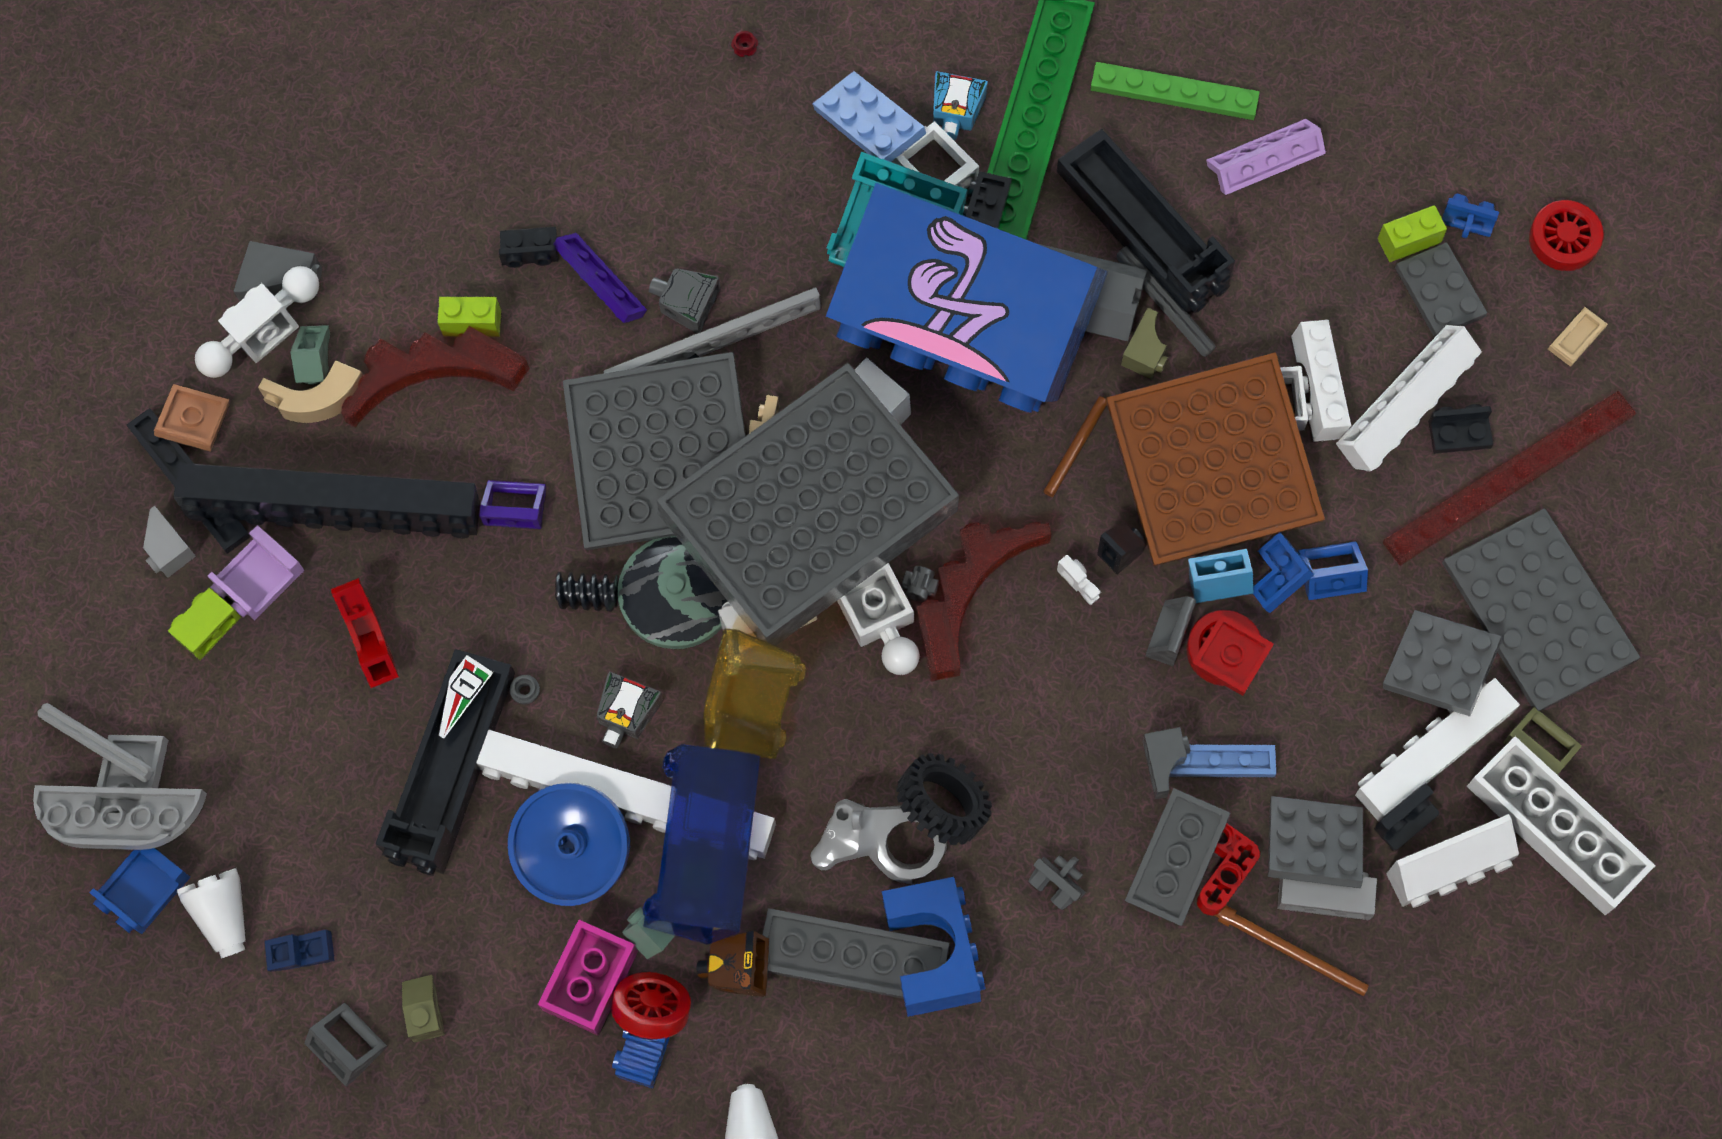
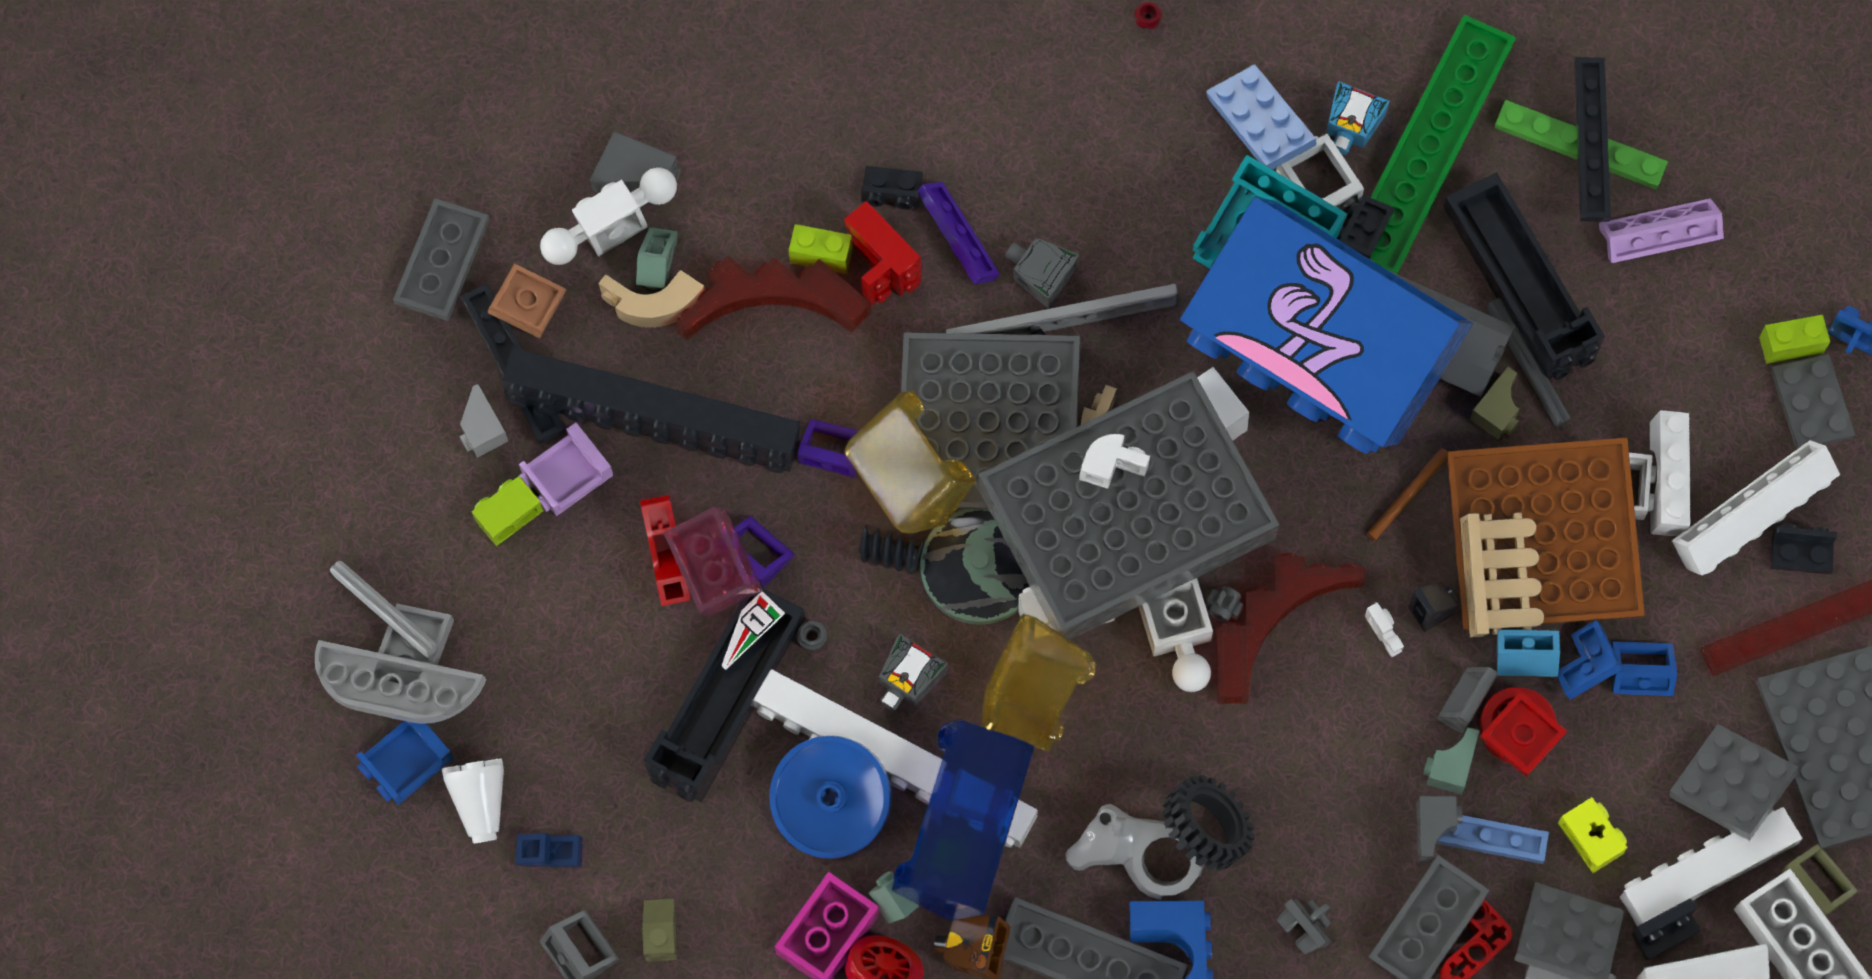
camera: 10 degrees right, 0 degrees up
(102, 393) = (441, 259): none -> dark grey plate
(412, 634) = (712, 561): none -> clear pink brick
(464, 640) = (766, 574): none -> dark purple tile
(539, 313) = (889, 255): none -> red brick
(586, 511) = (905, 469): none -> clear yellow windscreen
(779, 457) = (1106, 455): none -> white brick
(1156, 495) = (1480, 589): none -> tan fence
(1169, 700) = (1451, 767): none -> sand green arch
(1185, 82) = (1592, 139): none -> black plate
(1323, 754) = (1593, 850): none -> neon yellow brick

